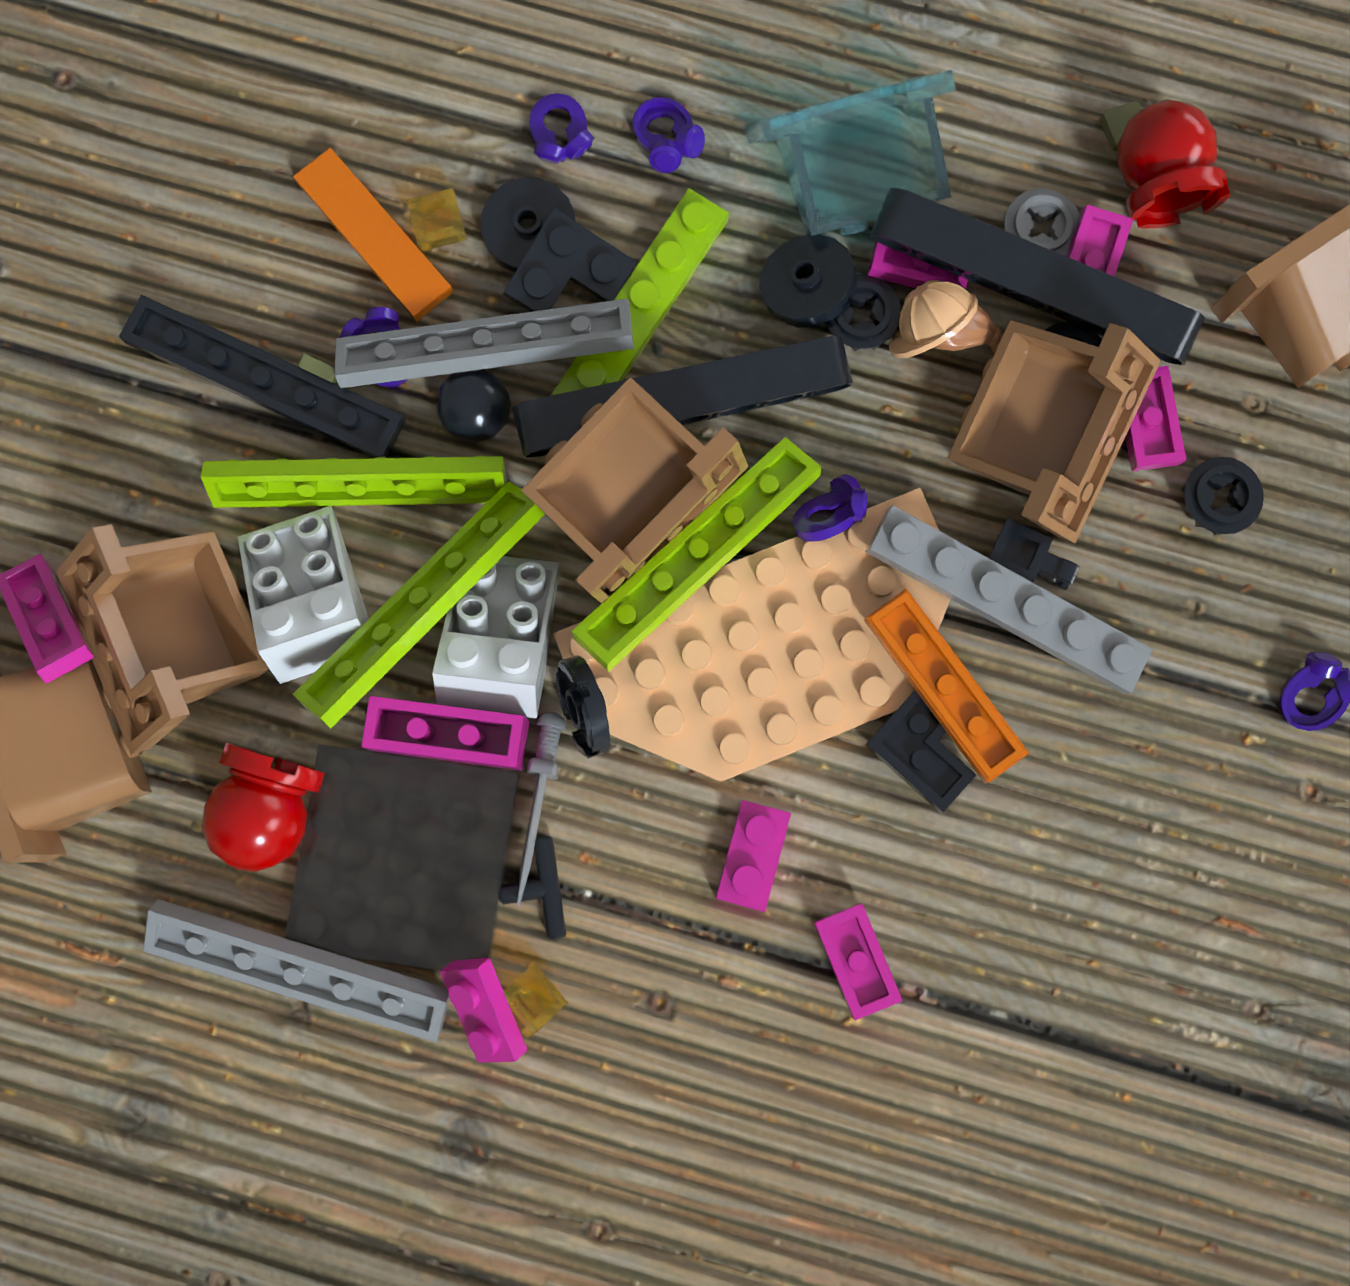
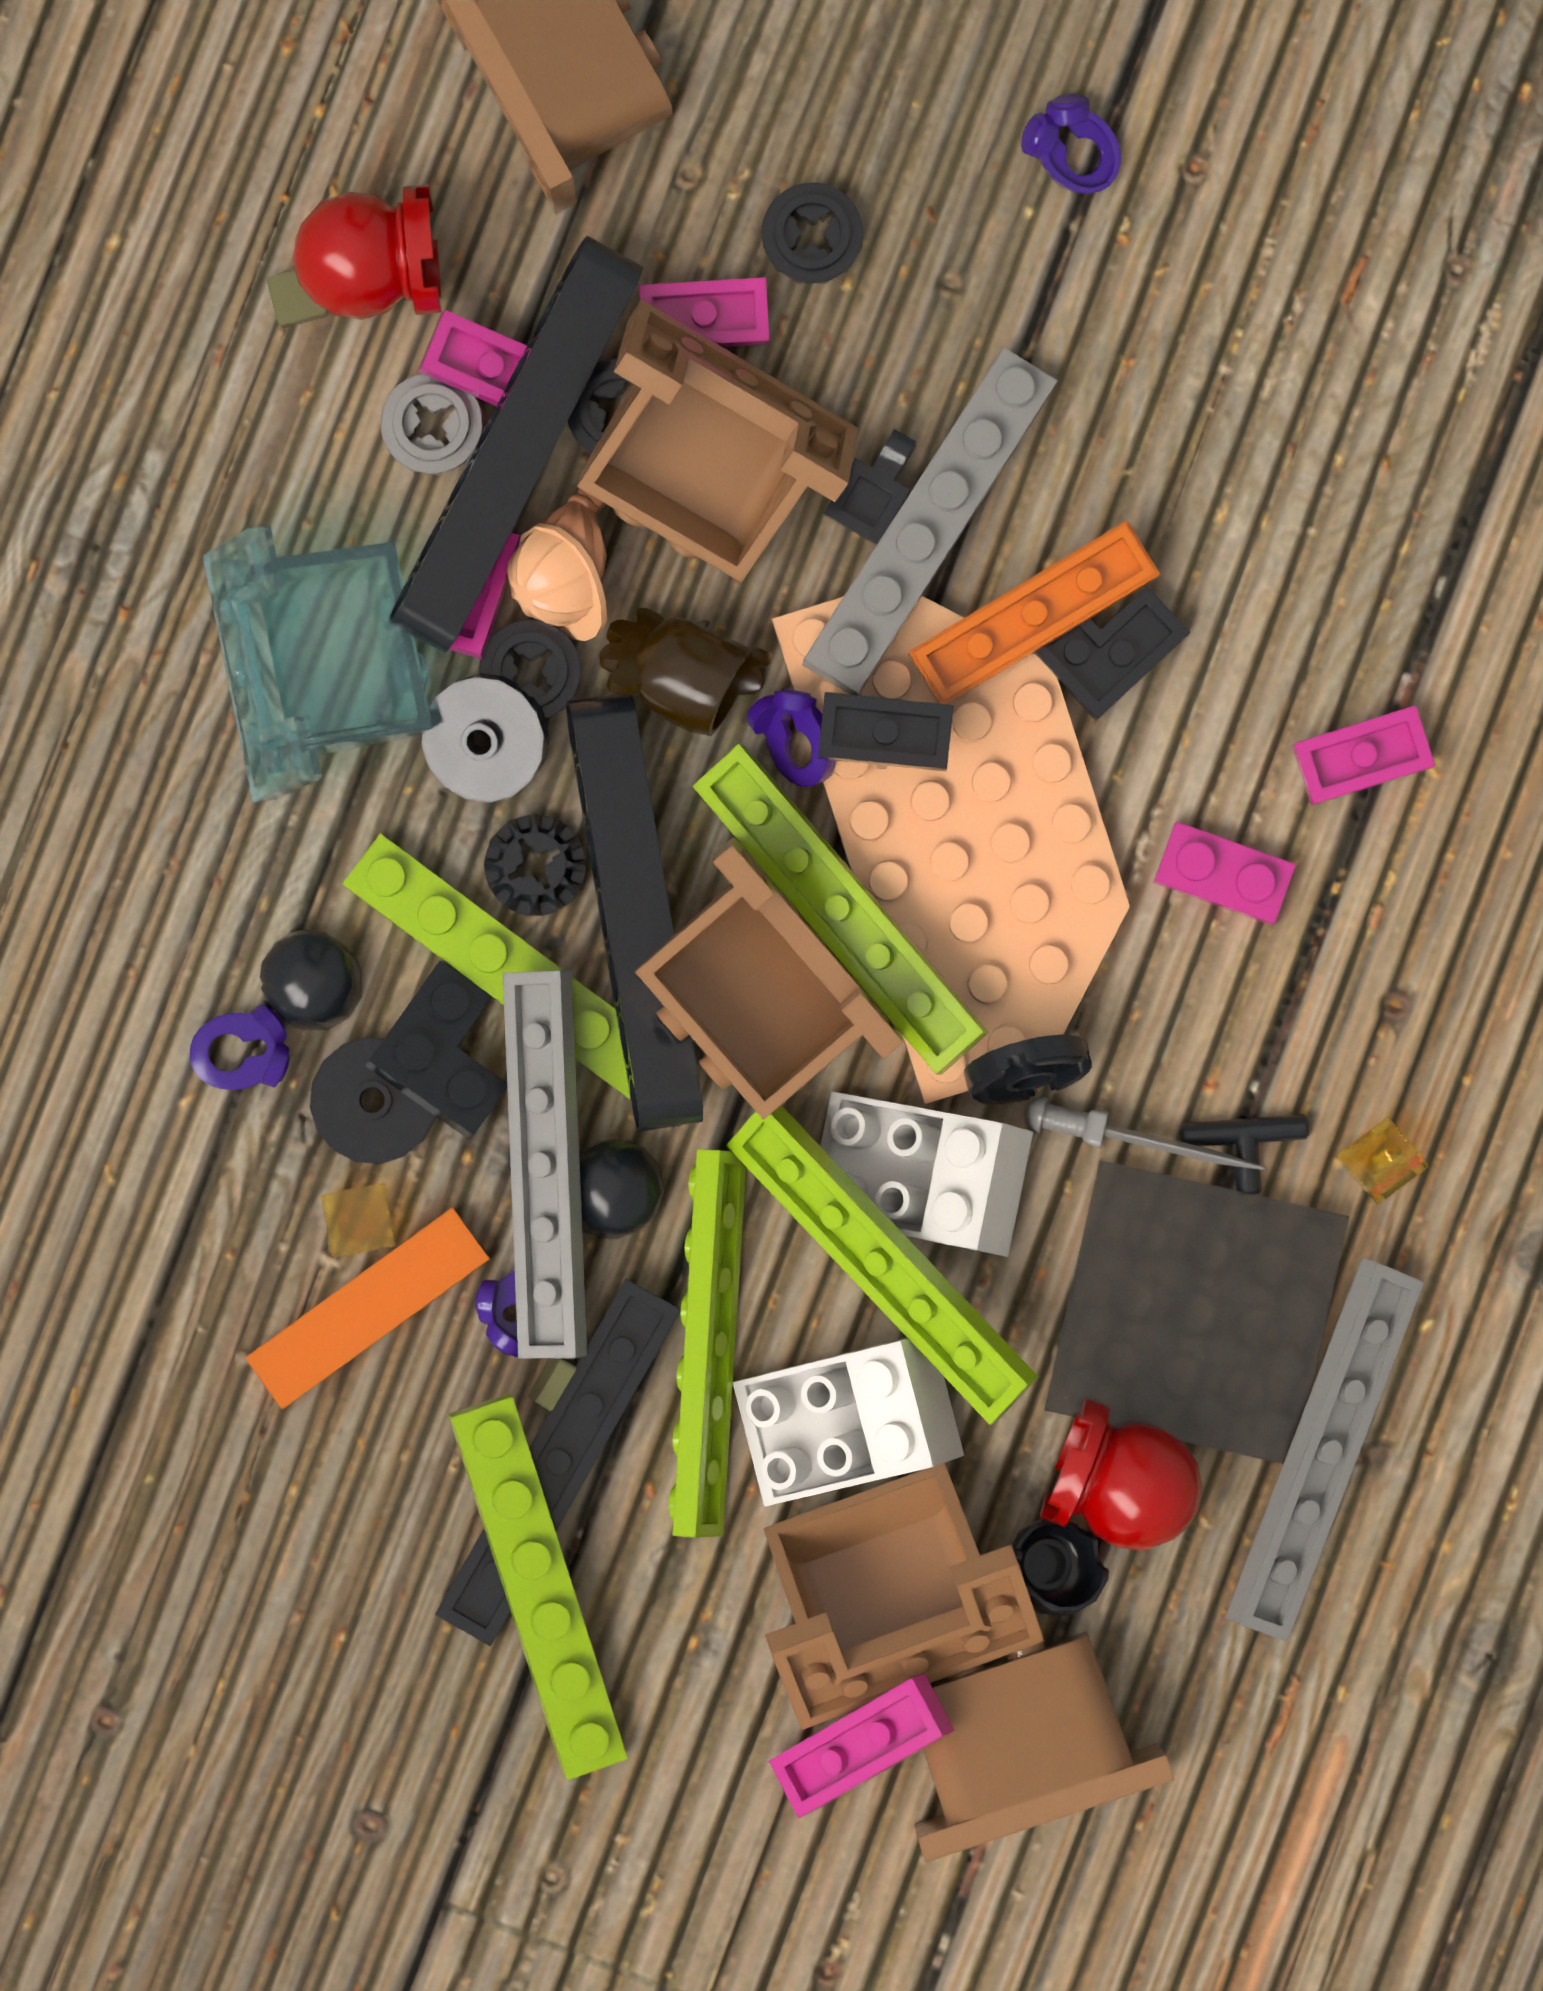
camera: 85 degrees left, 5 degrees up
(163, 365) = (537, 1586): none -> lime plate
(188, 761) = (1059, 1567): none -> black hair
(445, 733) = (1047, 1242): dark pink brick -> none
(483, 1010) = (1390, 1218): dark pink plate -> none
(614, 174) = (311, 980): none -> black hair
(667, 154) = (290, 912): dark purple piece -> none
(710, 347) = (564, 872): none -> black gear
(841, 569) = (885, 732): none -> black panel
(874, 415) = (681, 668): none -> dark brown piece

